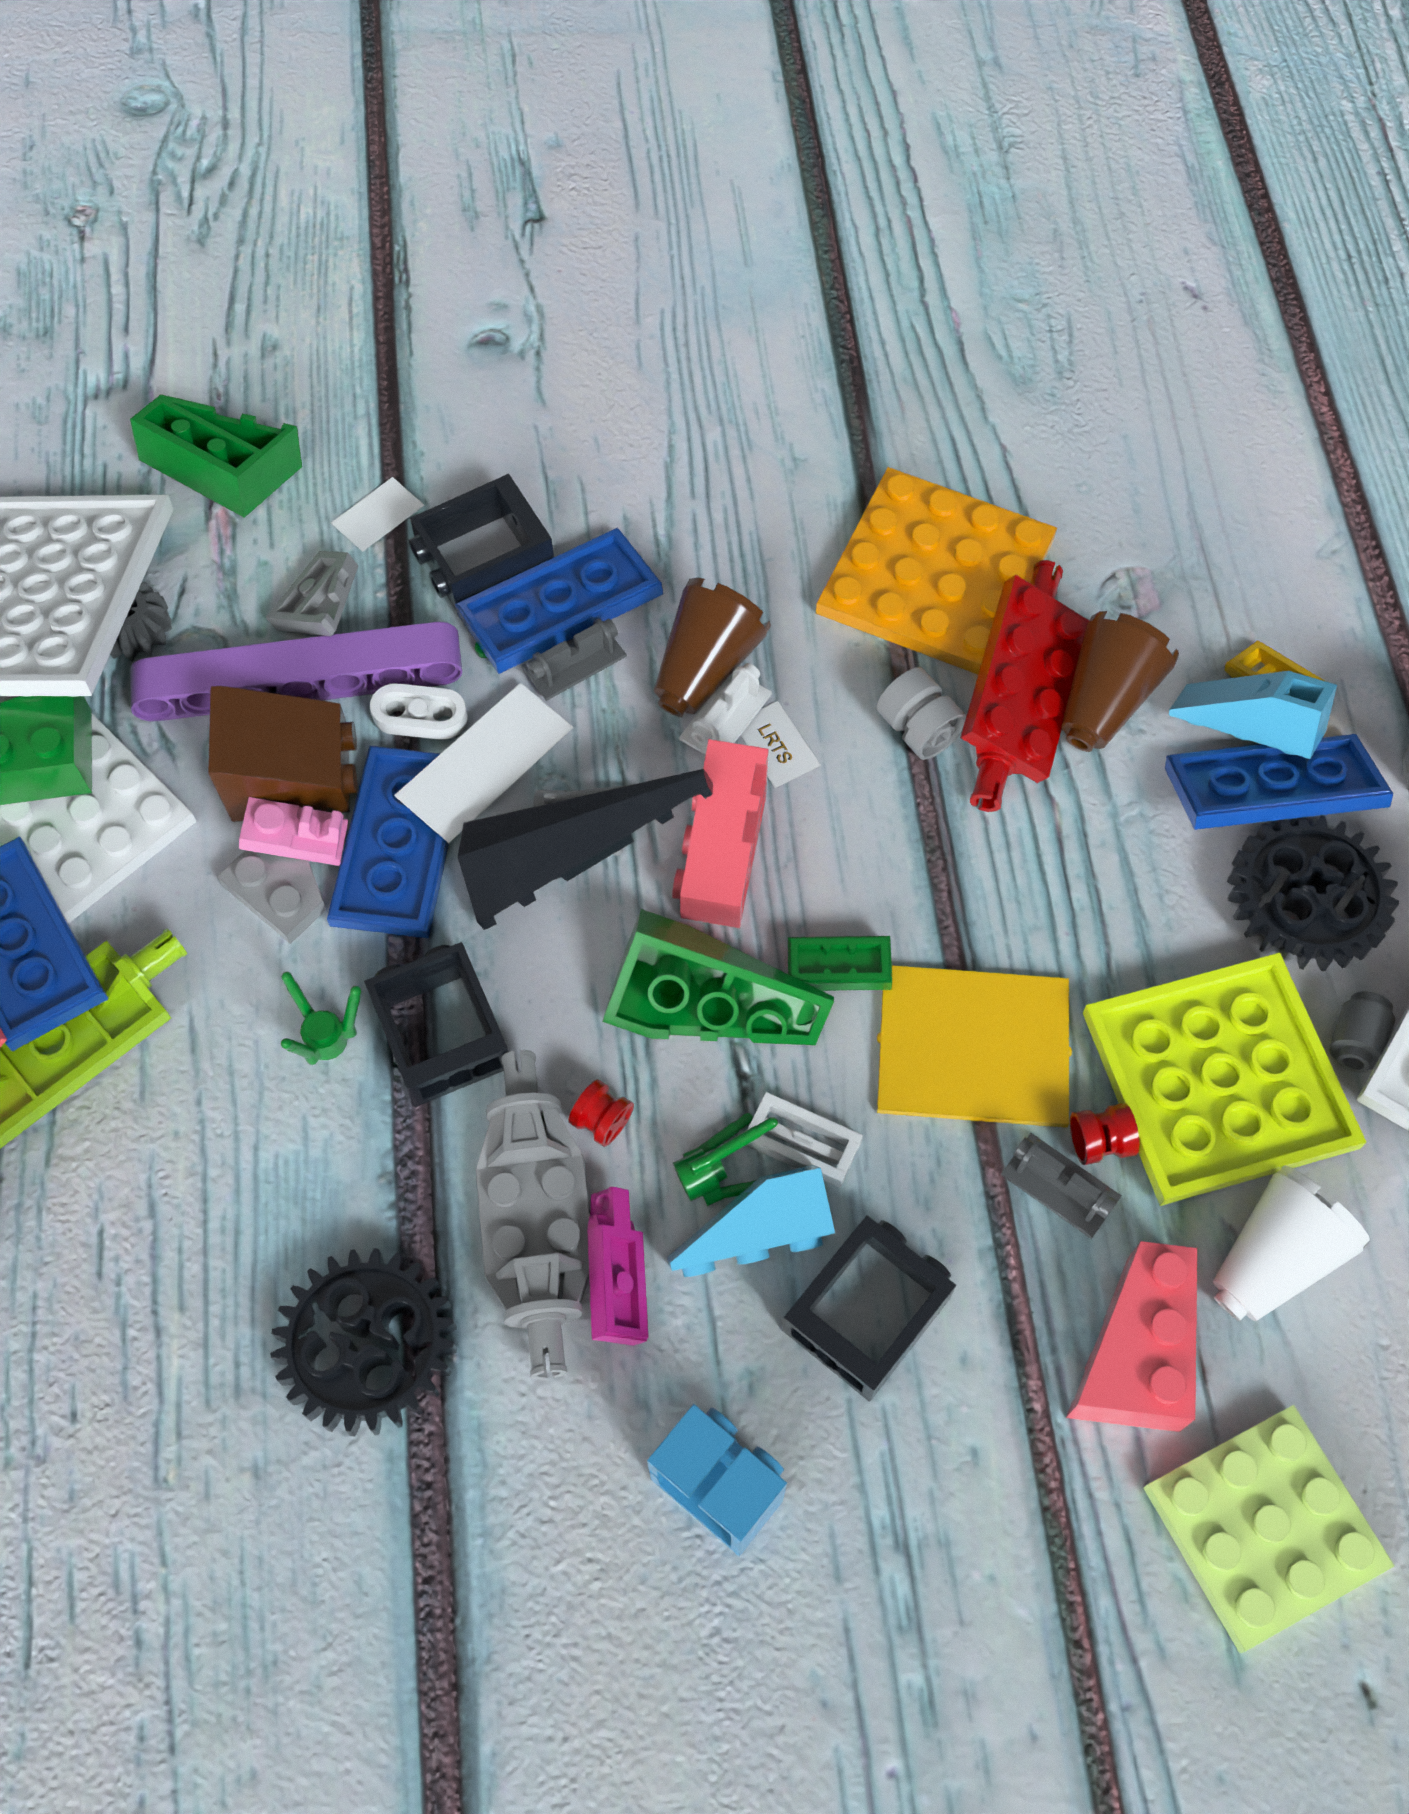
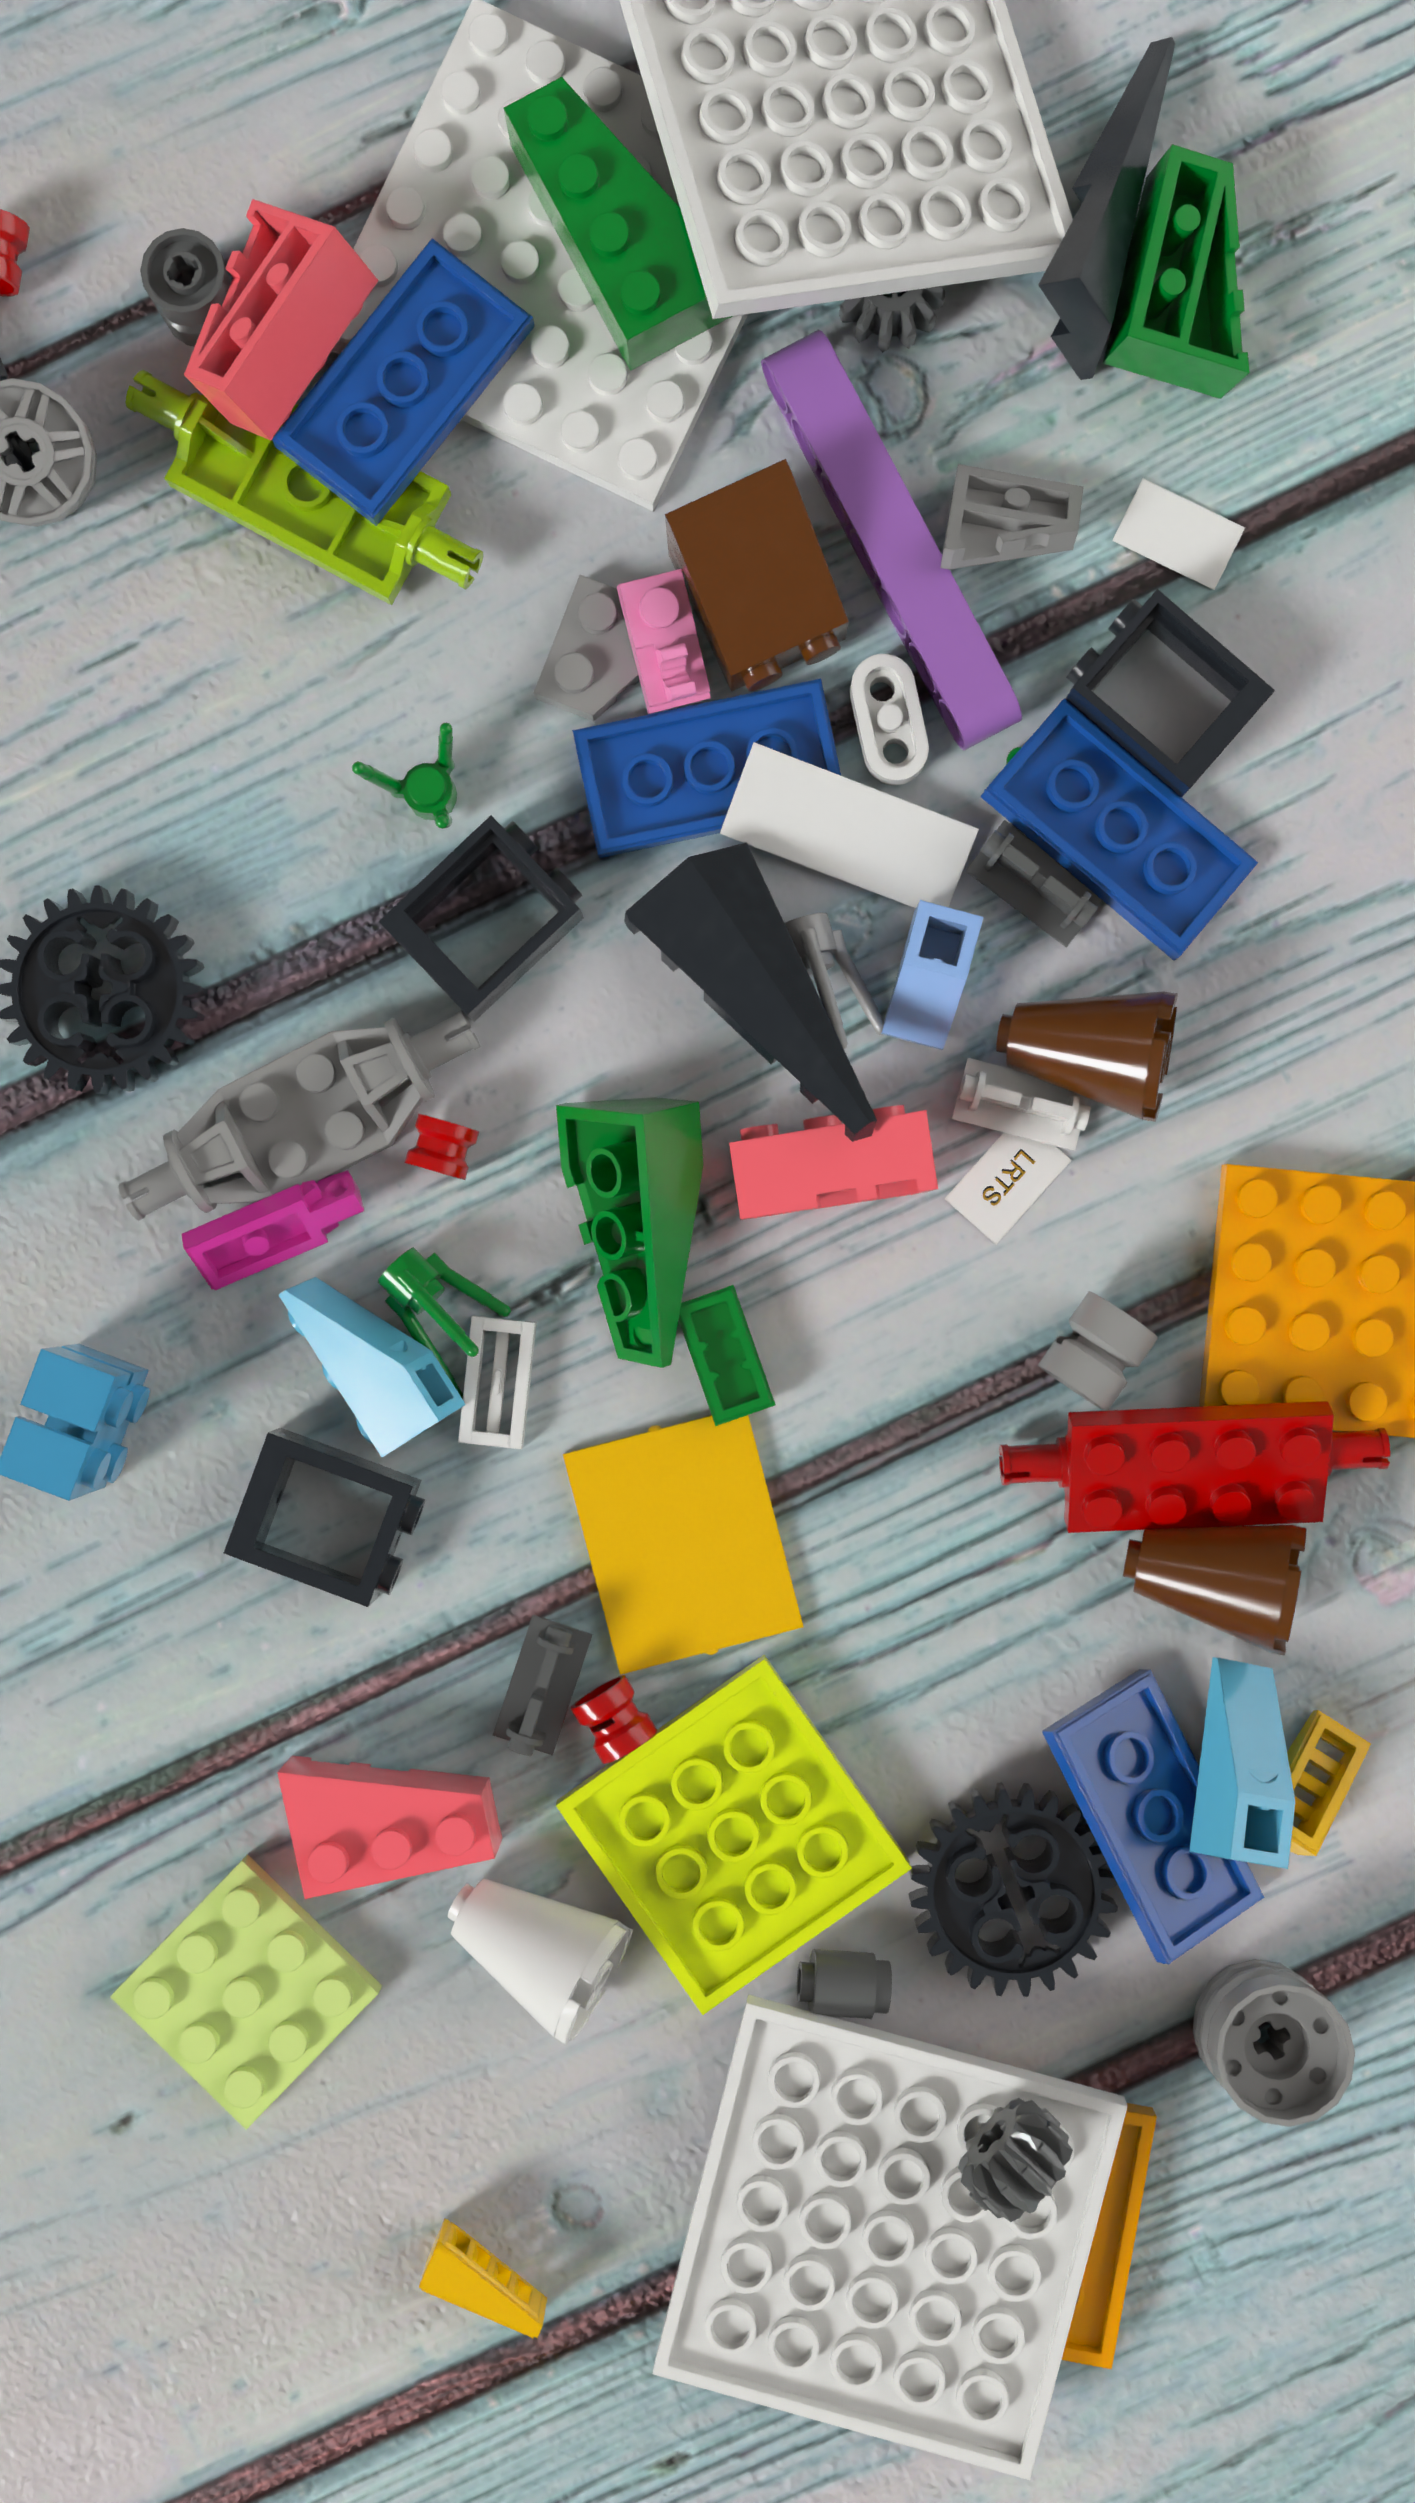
camera: 70 degrees right, 25 degrees up
(177, 487) = (1092, 256): none -> black wedge
(609, 732) = (932, 974): none -> light blue slope

